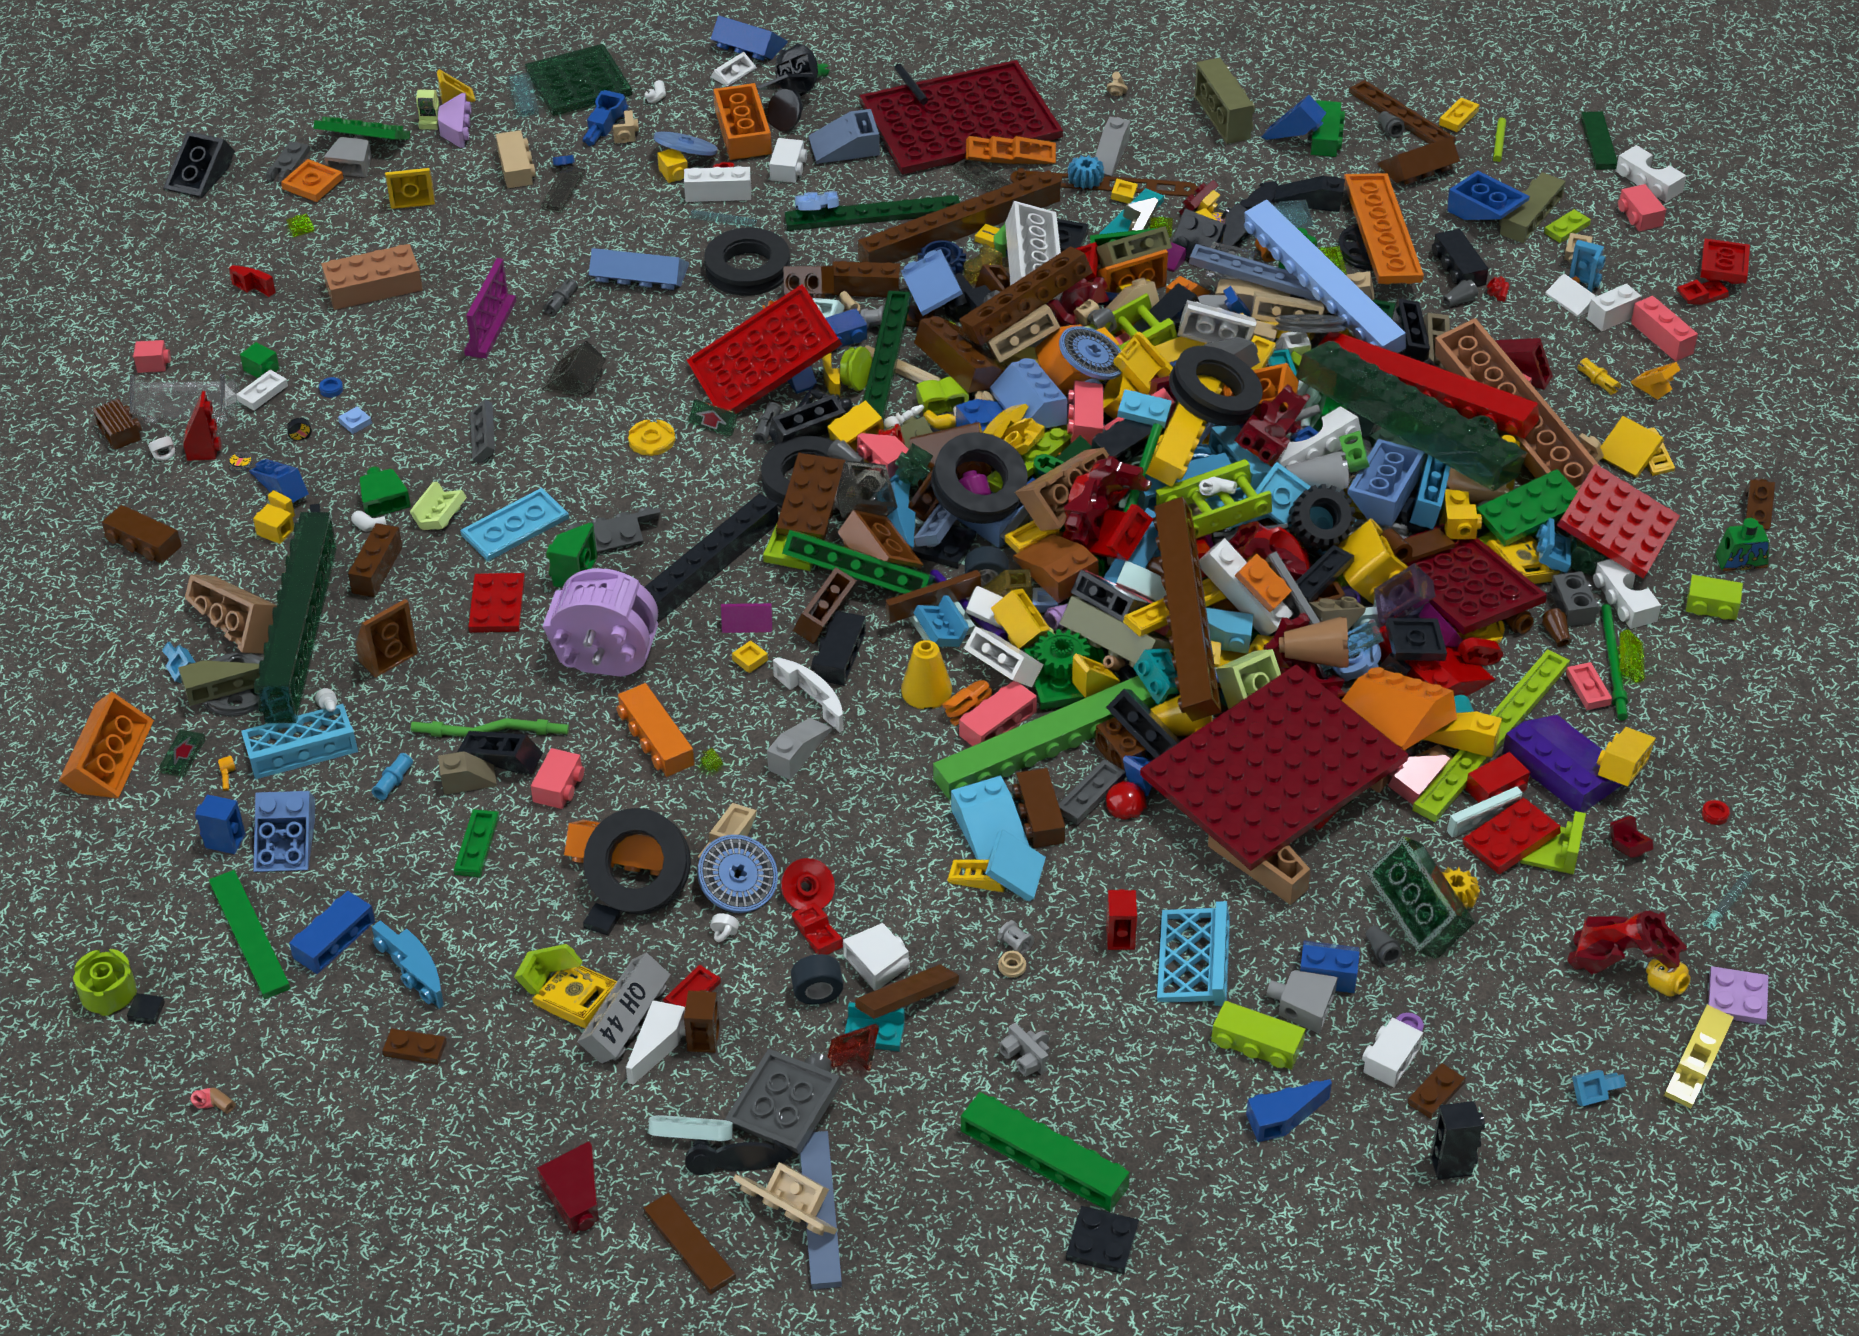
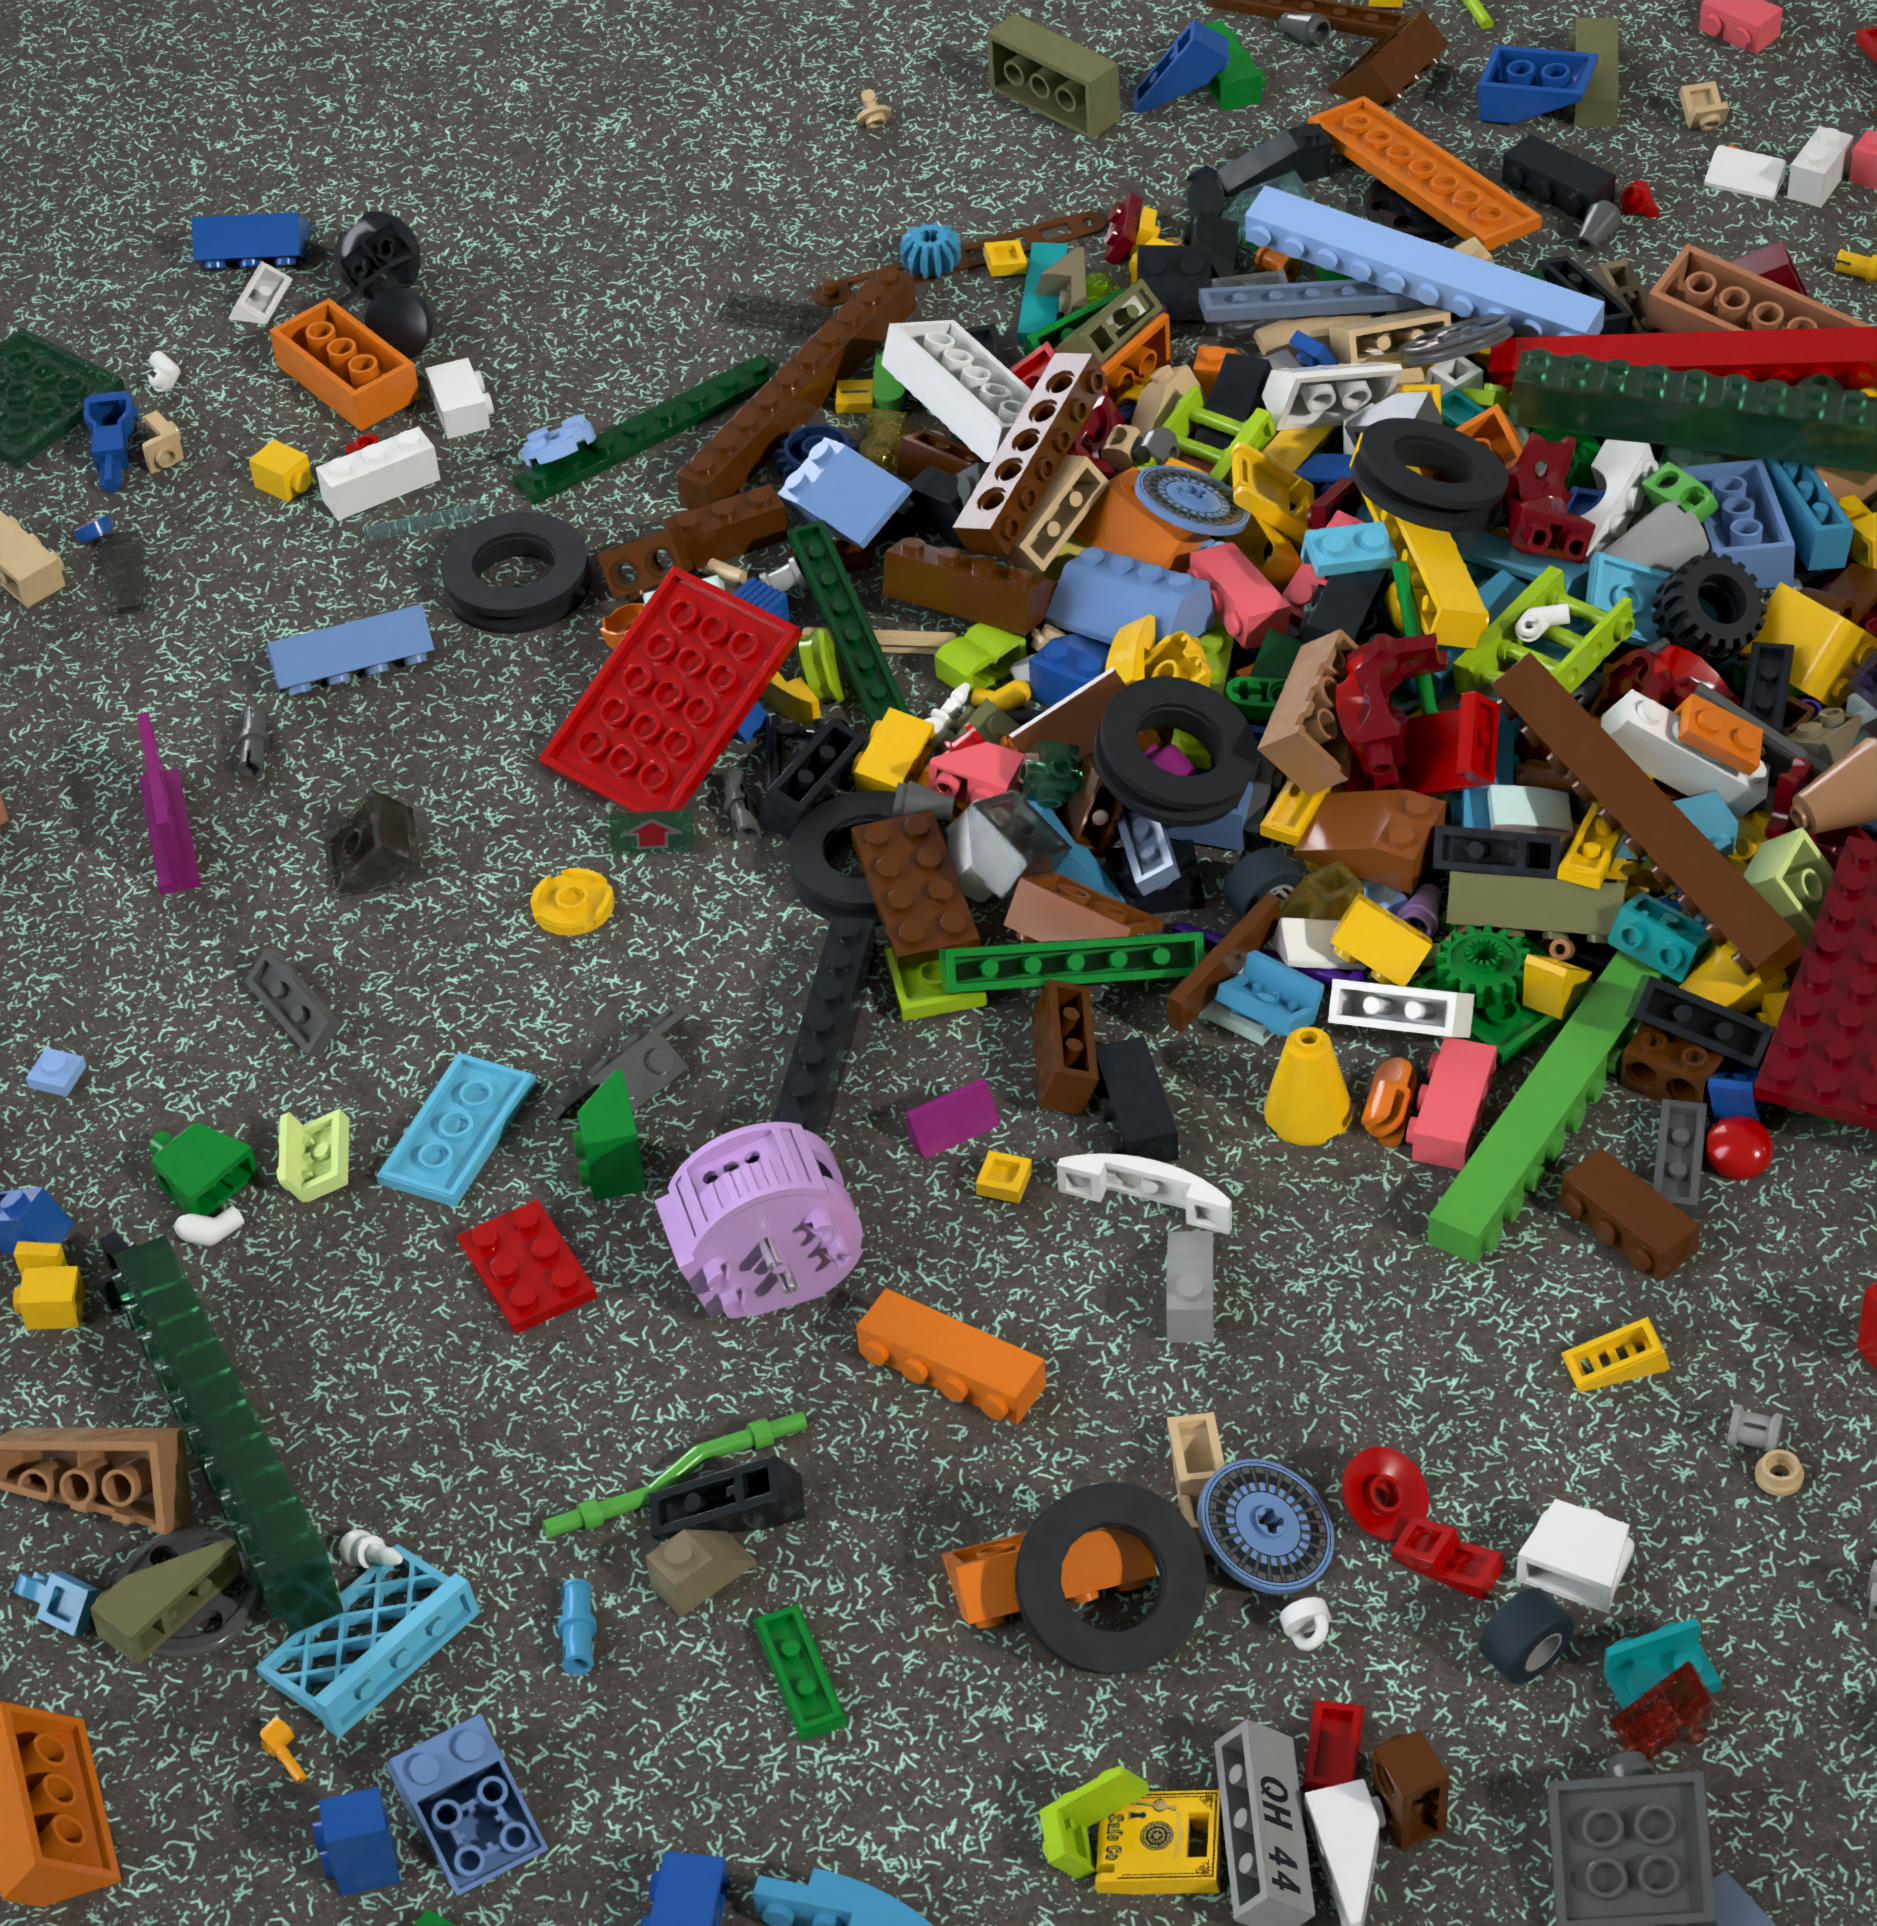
camera: 25 degrees left, 0 degrees up
(182, 753) = (179, 1752): clear green tile -> none
(375, 560) = (276, 1283): reddish brown brick -> none
(386, 639) = (410, 1408): dark orange slope -> none
(557, 778) = (855, 1505): coral brick -> none
(601, 919) = (1100, 1701): black tile -> none
(685, 143) = (279, 430): medium blue piece -> none
(711, 760) = (1073, 1365): clear neon green plate -> none
(846, 138) = (527, 330): sand blue slope -> none
(906, 991) = (1675, 1589): reddish brown tile -> none
(911, 84) = (566, 216): black bar -> none
(969, 103) = (671, 239): dark red plate -> none
(984, 811) = (1571, 1267): medium azure slope -> none
(1010, 151) = (792, 260): orange slope -> none
(1015, 865) = (1670, 1318): medium azure tile -> none
(1113, 143) = (934, 191): light grey slope -> none
(1569, 223) = (1657, 81): lime plate -> none
(1587, 263) = (1744, 118): dark azure bracket -> none

